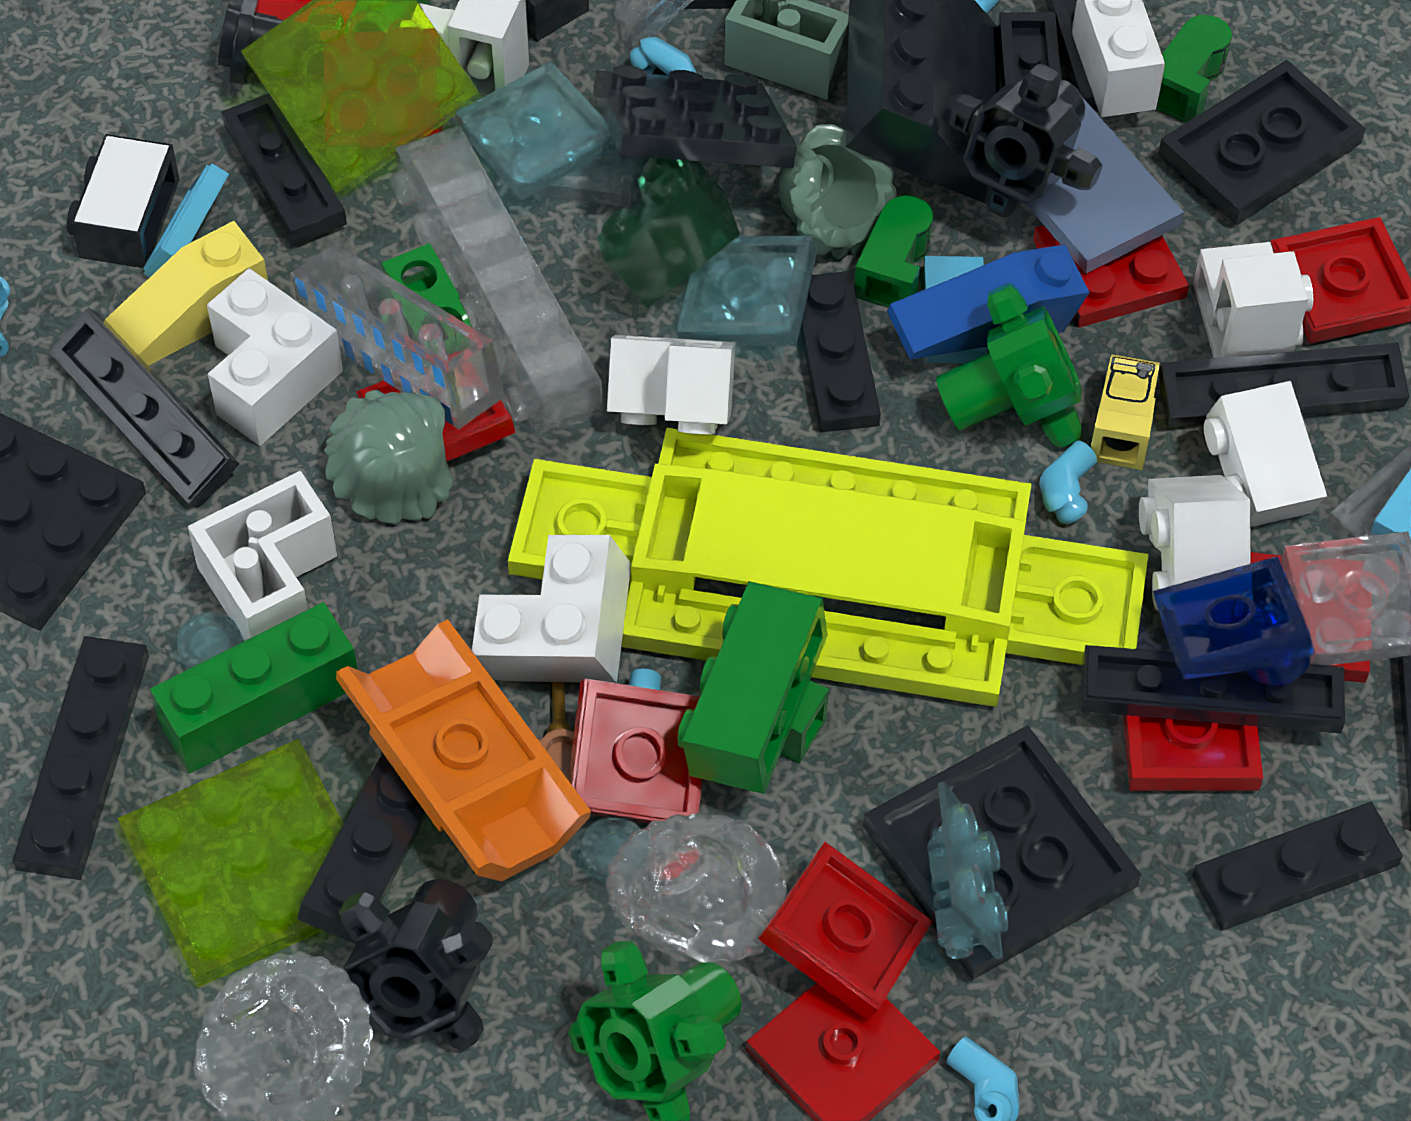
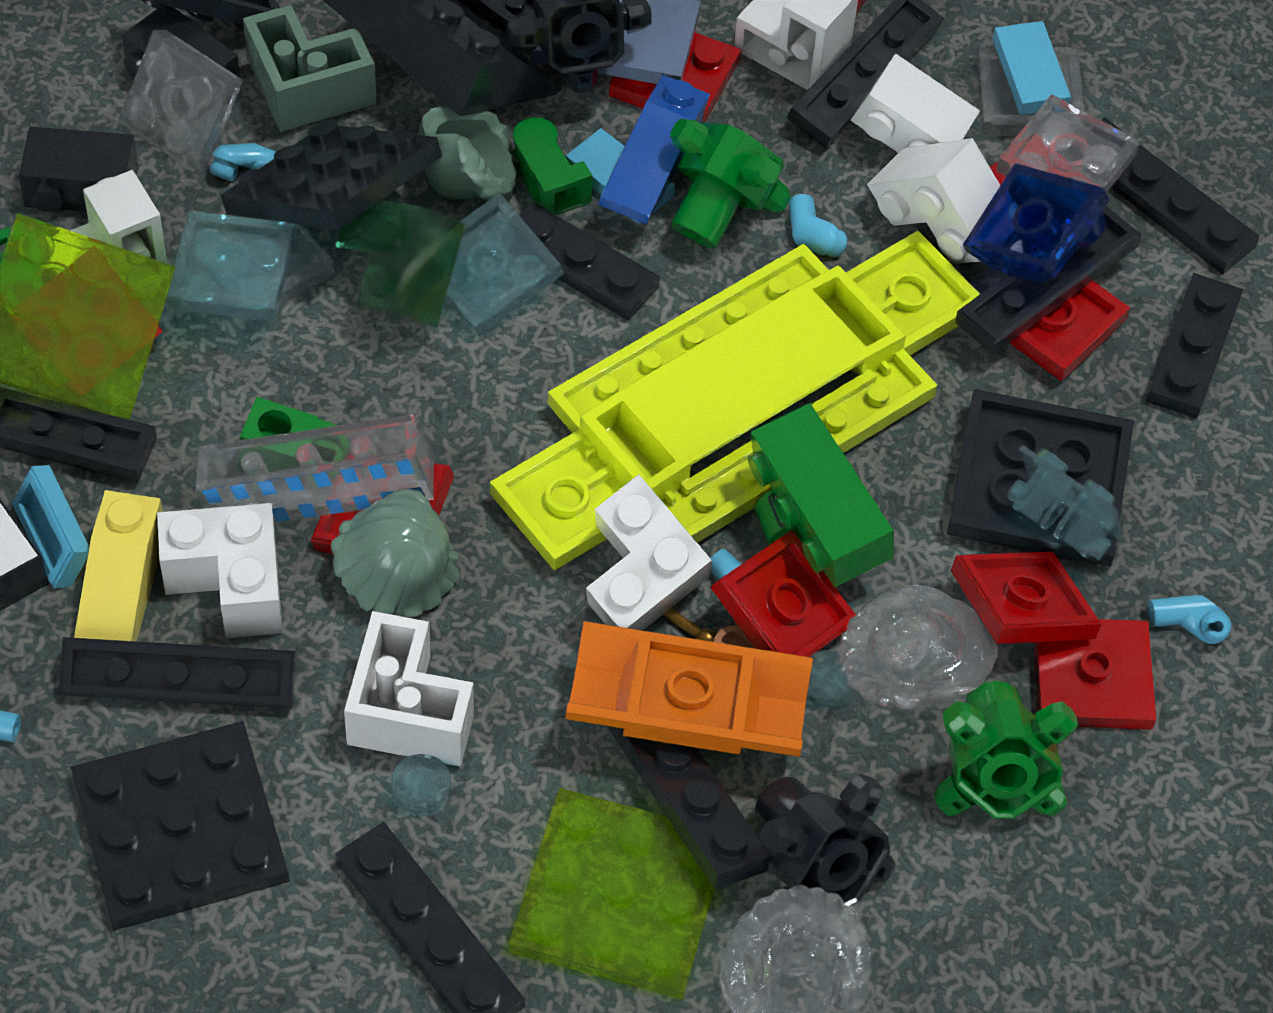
camera: 50 degrees left, 0 degrees up
(253, 687) = (497, 779): green brick -> none
(498, 282) = (239, 361): clear brick -> none
(671, 378) = (528, 348): white brick -> none
(1126, 411) = (802, 154): light yellow leg -> none

